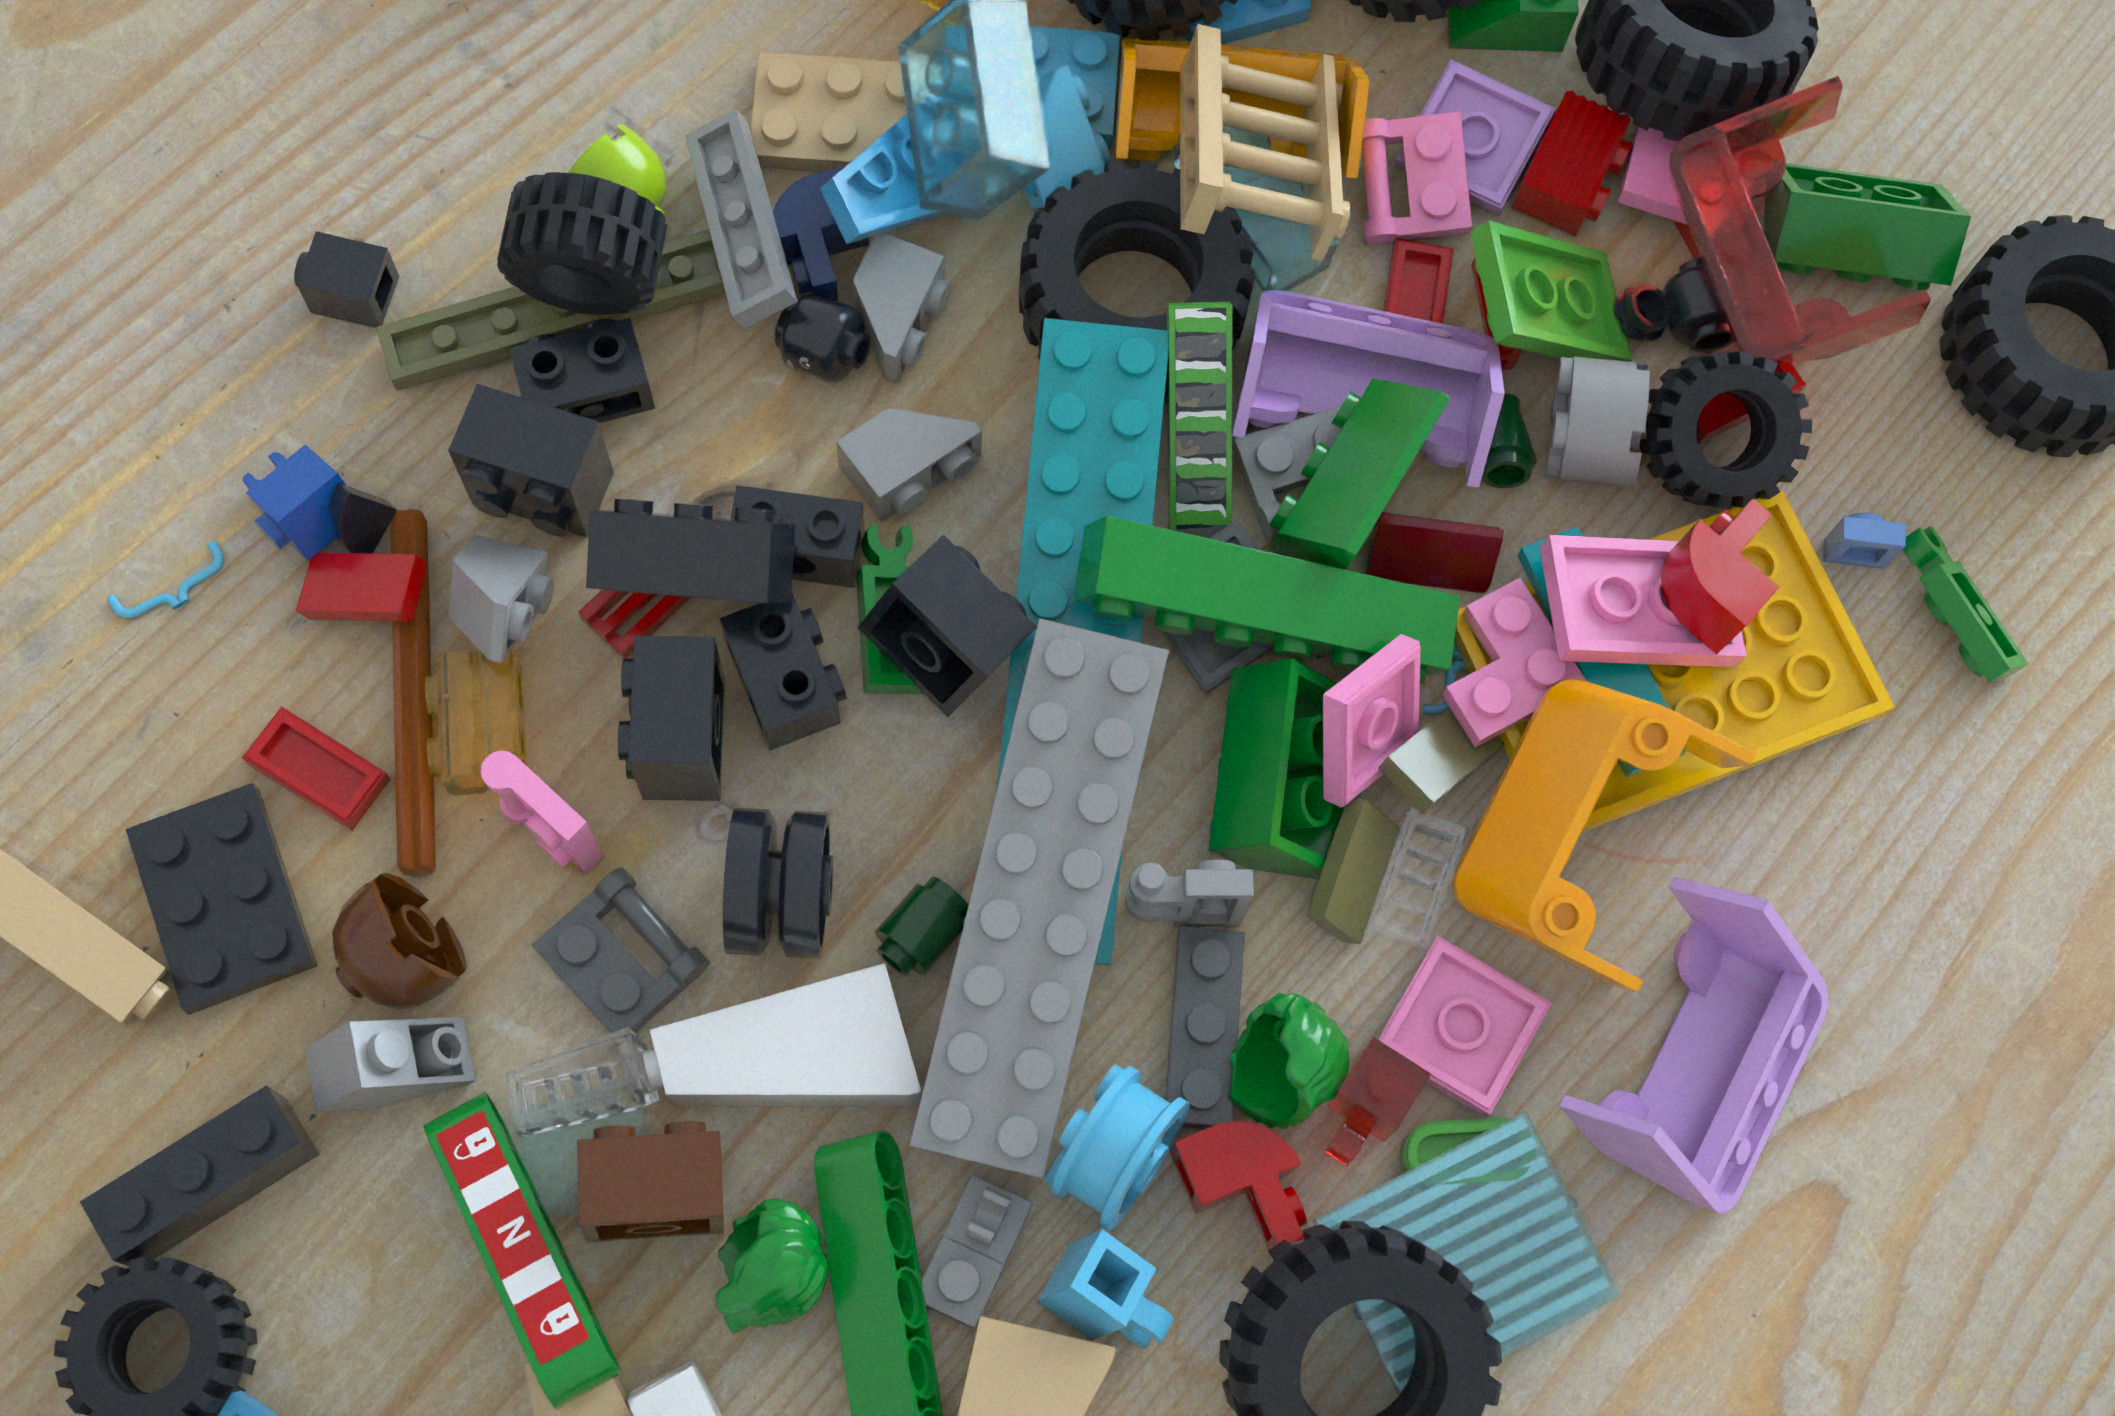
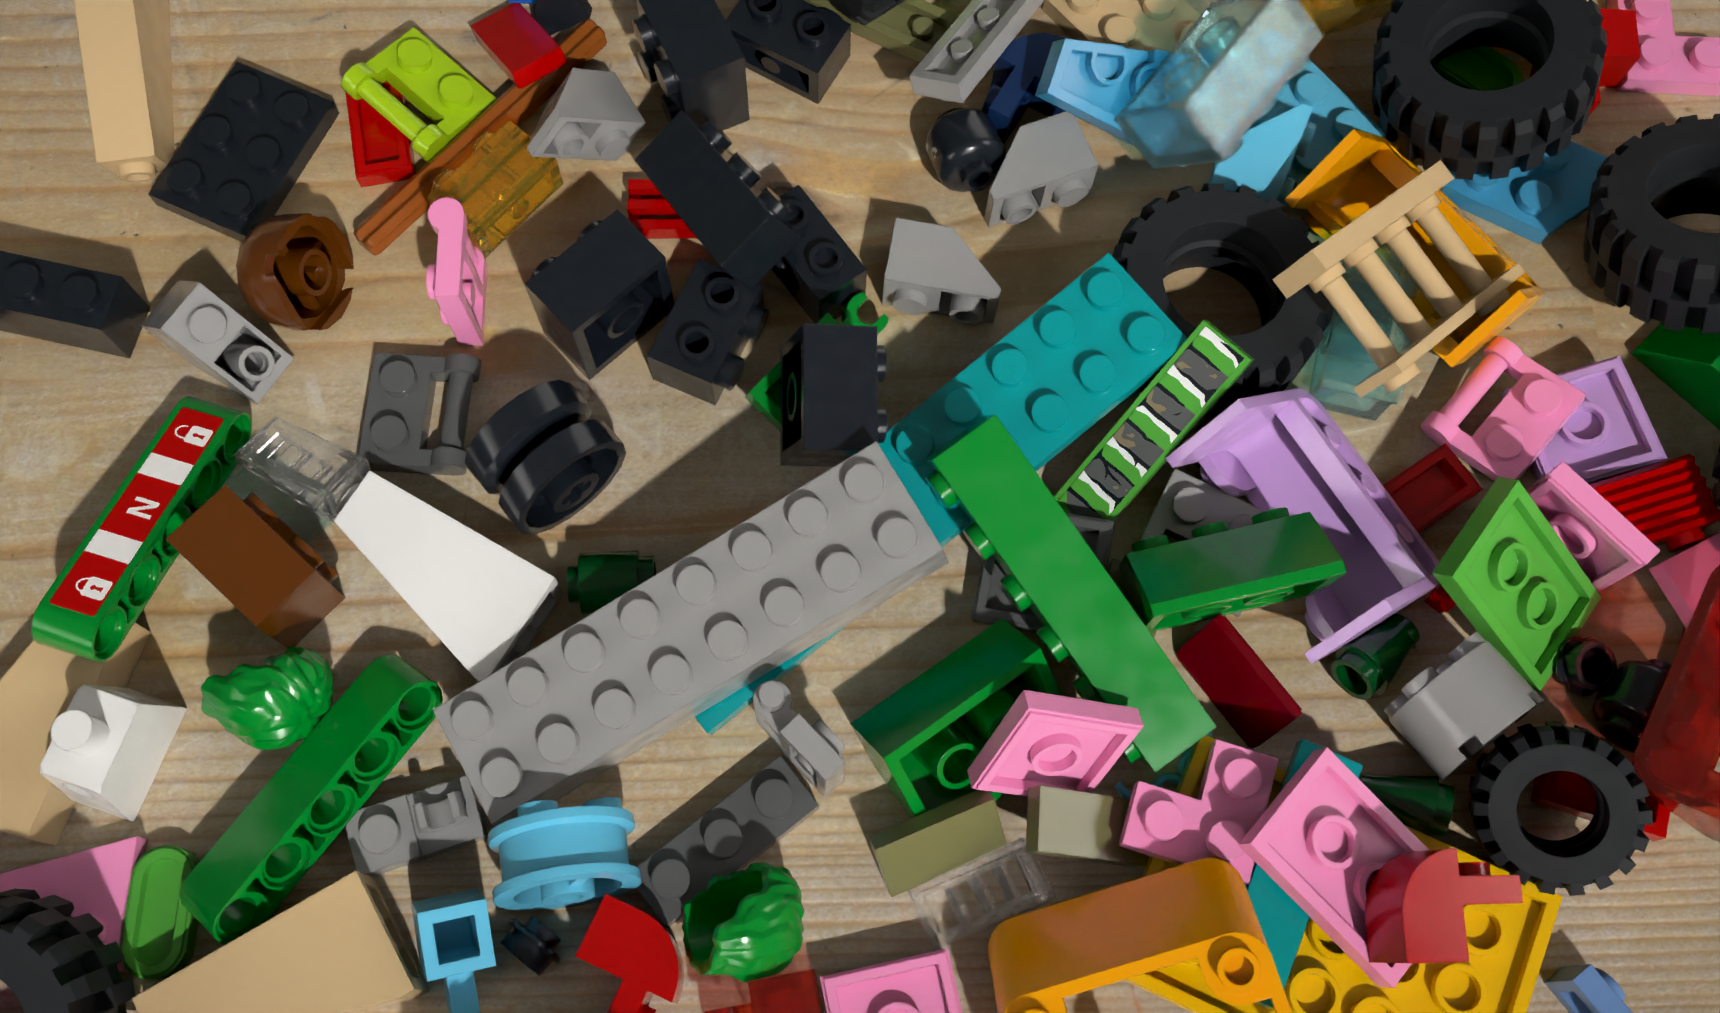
camera: 50 degrees right, 0 degrees up
(323, 689) = (428, 82): none -> lime plate
(1154, 1237) = (532, 944): none -> black plate
(1559, 209) = (1591, 527): none -> bright pink plate
(1631, 515) = (1414, 800): none -> dark green cone

